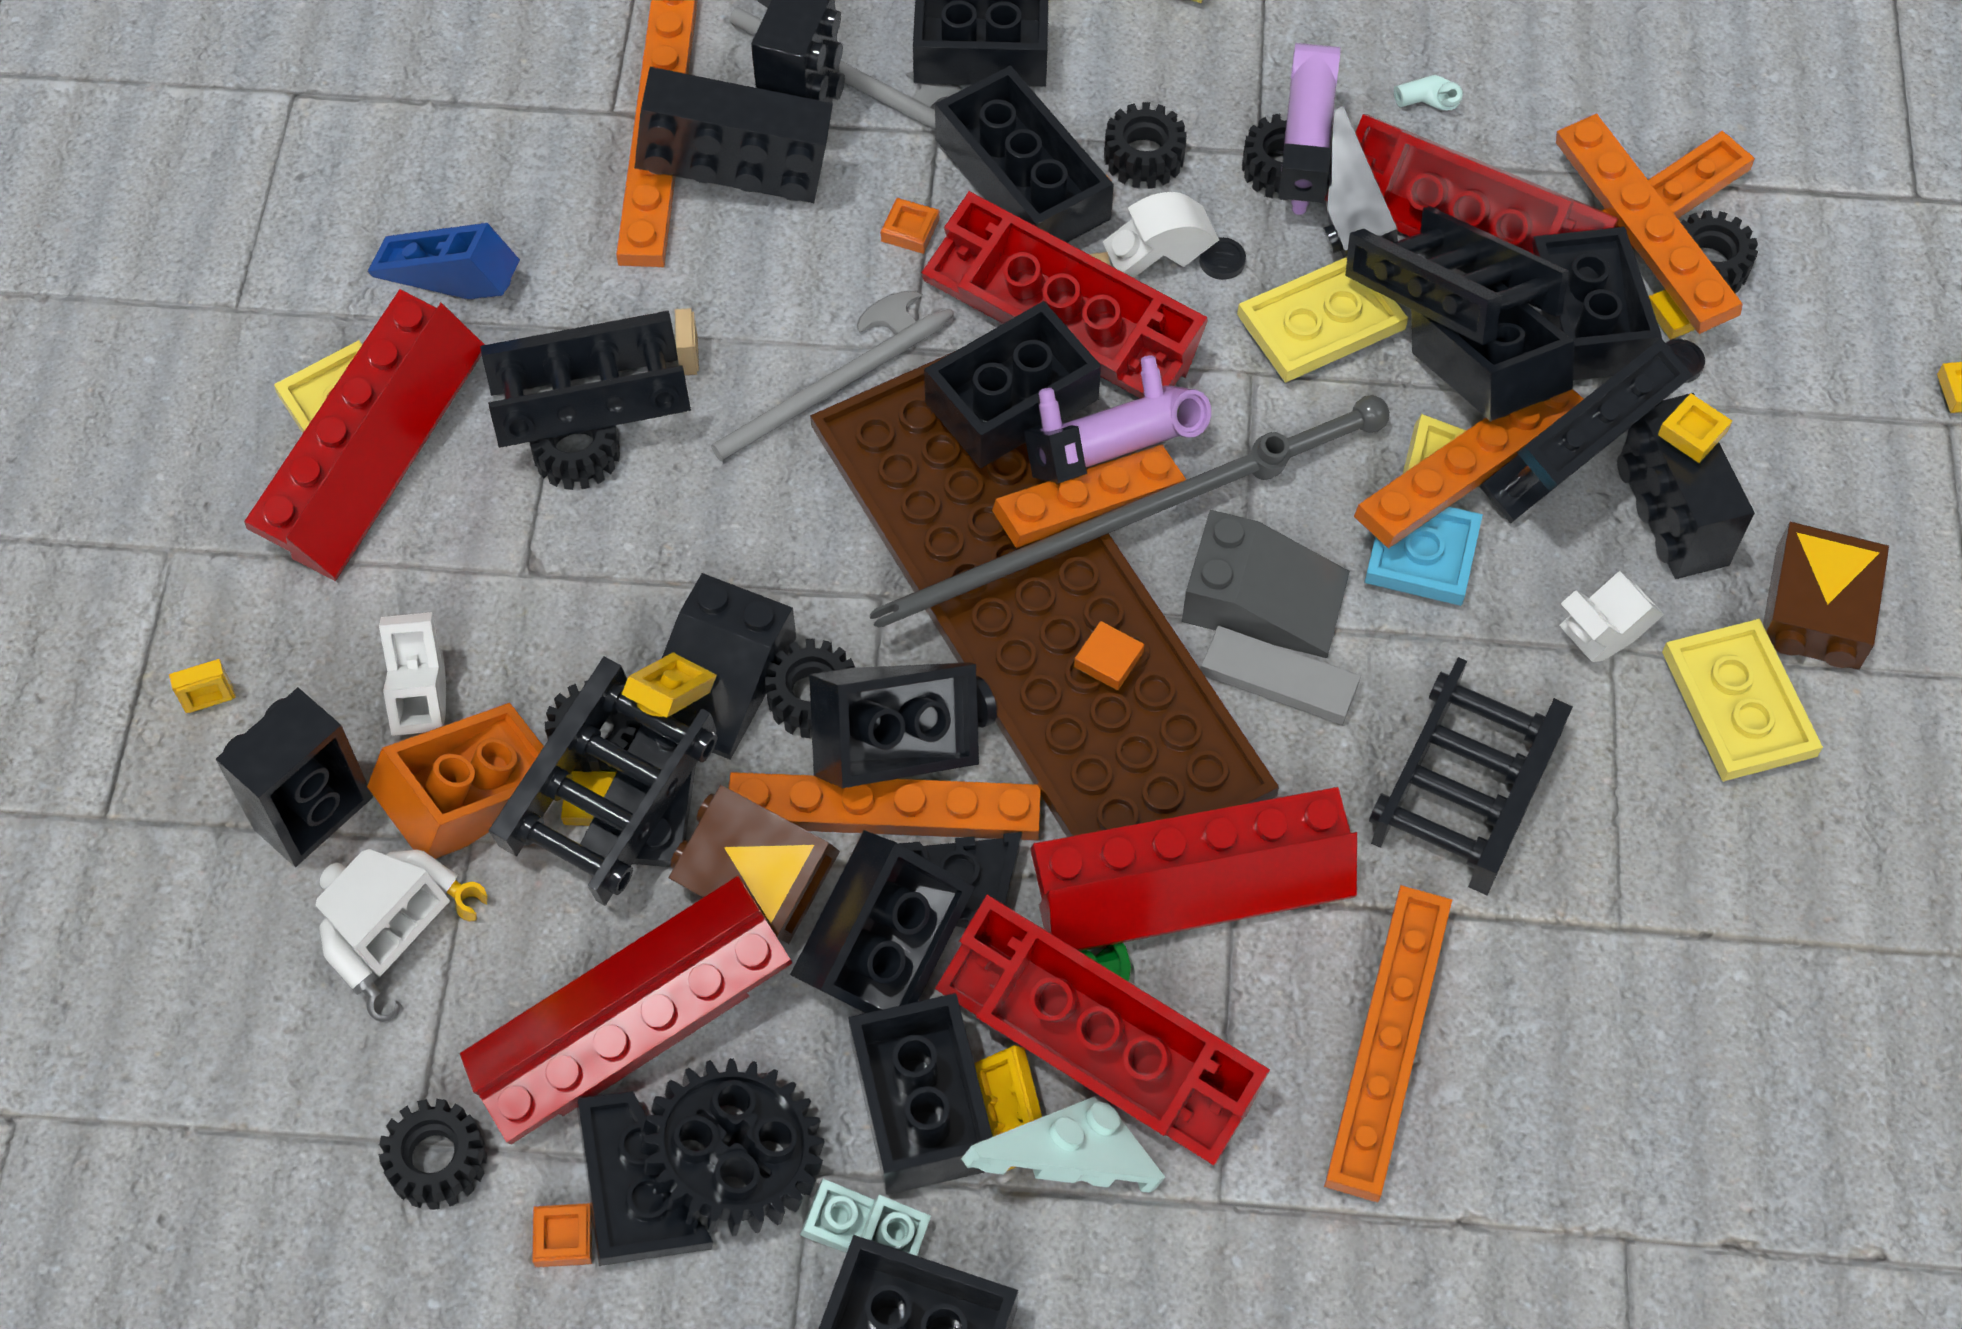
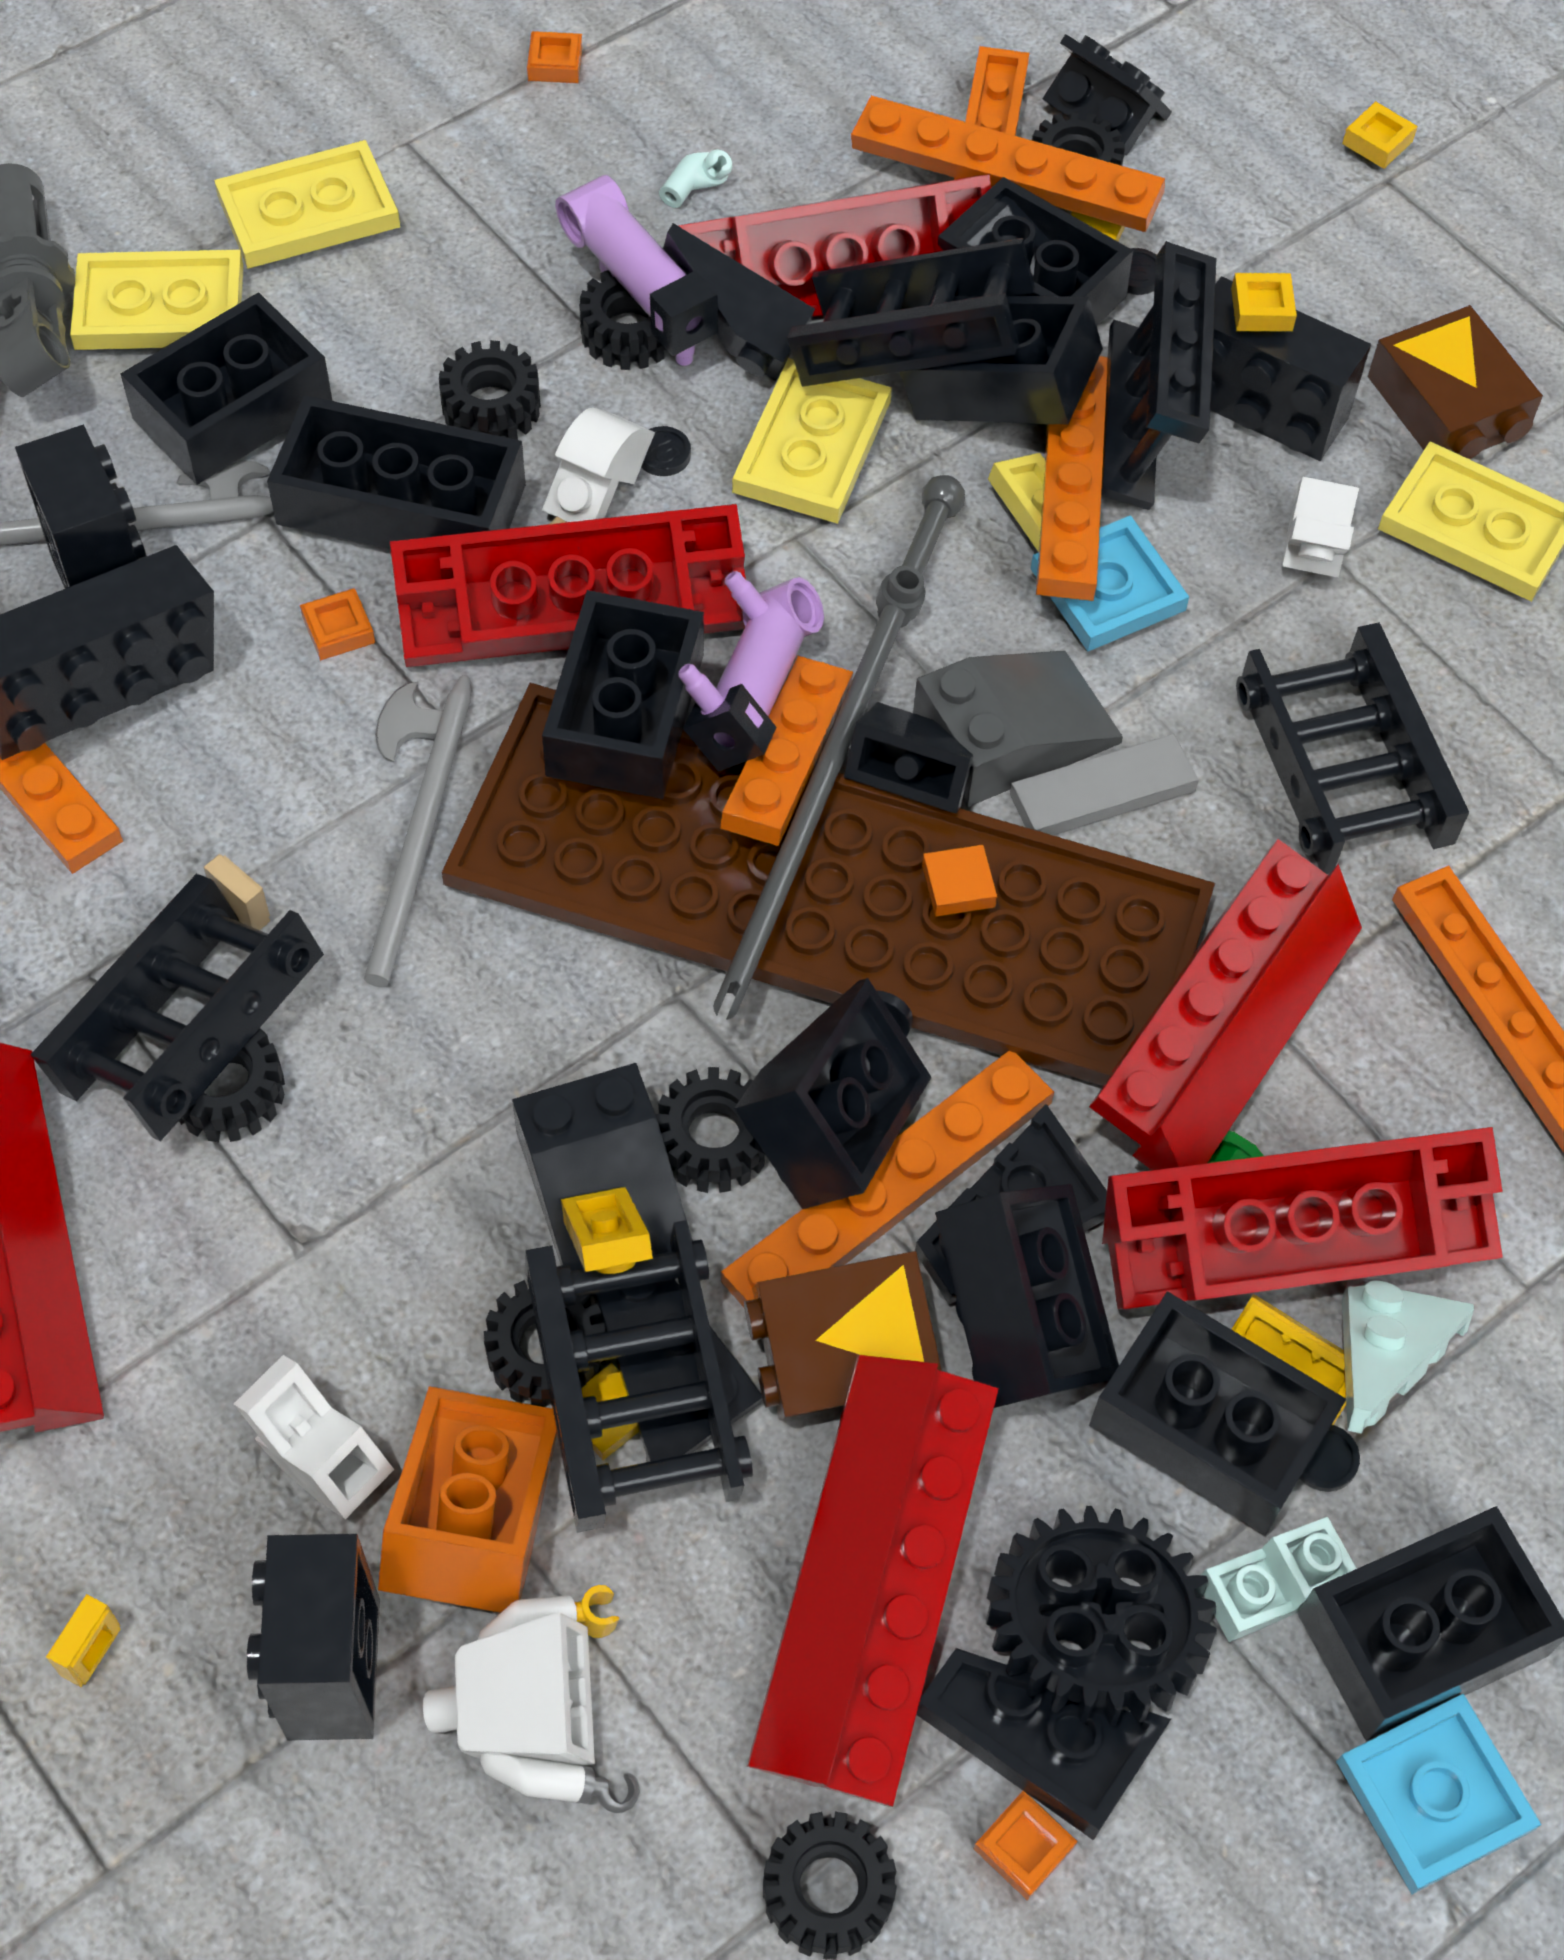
camera: 45 degrees left, 0 degrees up
(976, 1193) = (1333, 1462): none -> black piece
(1156, 552) = (909, 757): none -> black slope
(1783, 222) = (1105, 87): none -> black bracket

